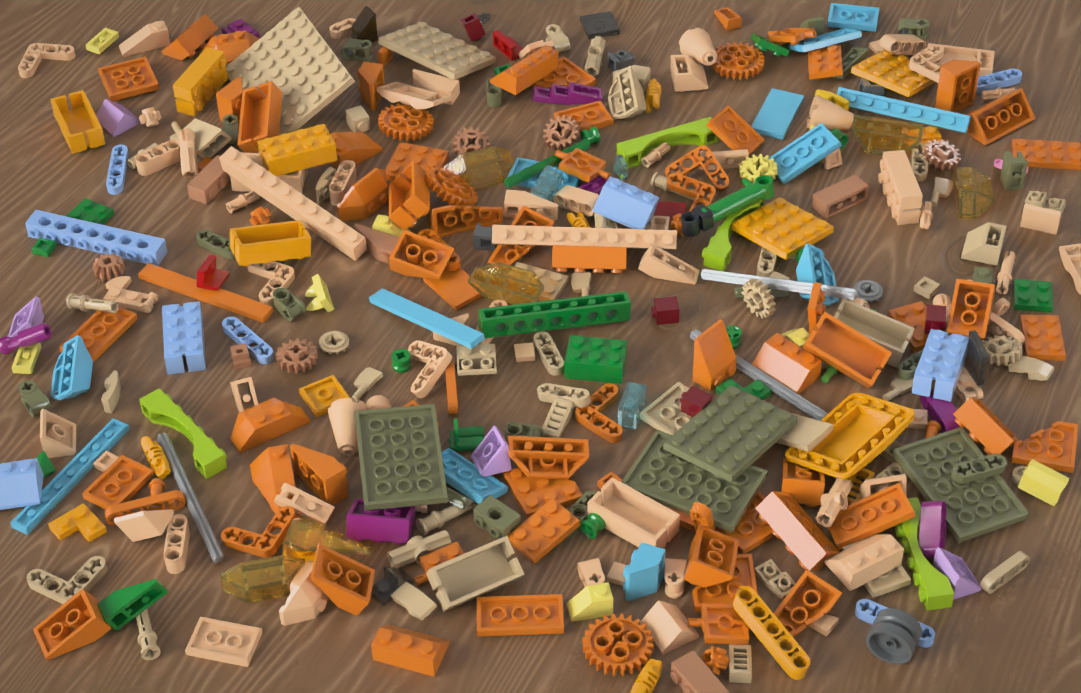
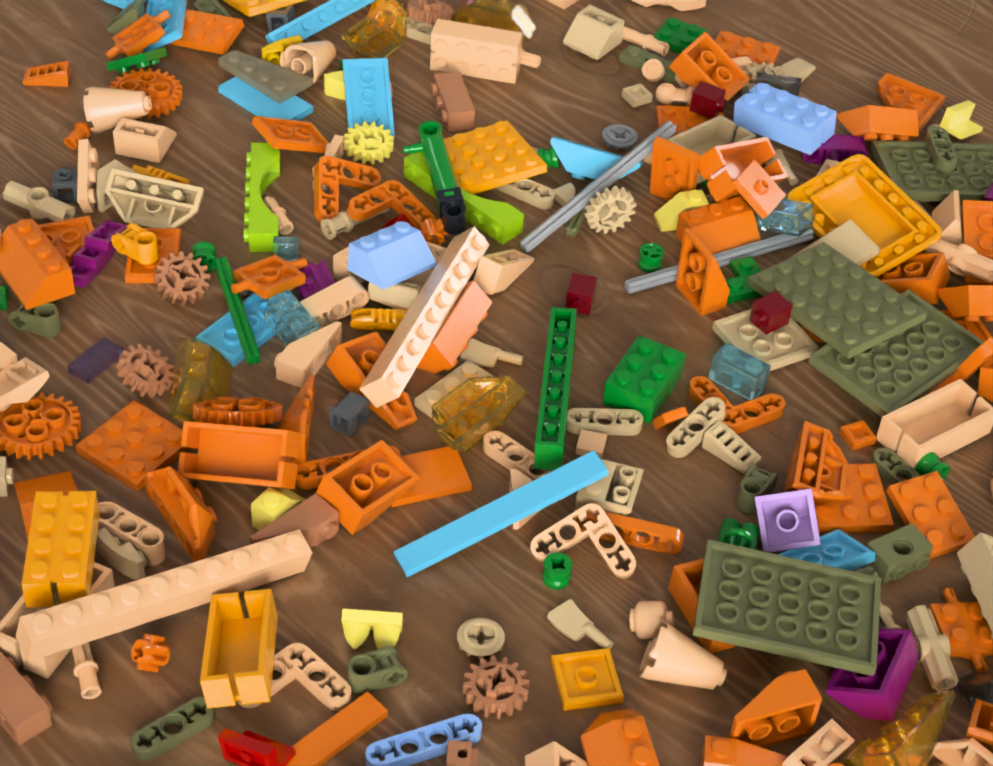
camera: 75 degrees left, 0 degrees up
(485, 126) = (95, 360): none -> clear purple tile
(565, 380) = (670, 417): none -> orange tile
(578, 104) = (137, 244): none -> light orange piece
(636, 56) = (87, 176): none -> light nougat wing
(672, 50) = (80, 132): none -> orange pin
(795, 103) = (265, 76): none -> dark tan wing
(819, 359) = (758, 189): none -> plate
(821, 393) = (788, 218): none -> clear light blue brick

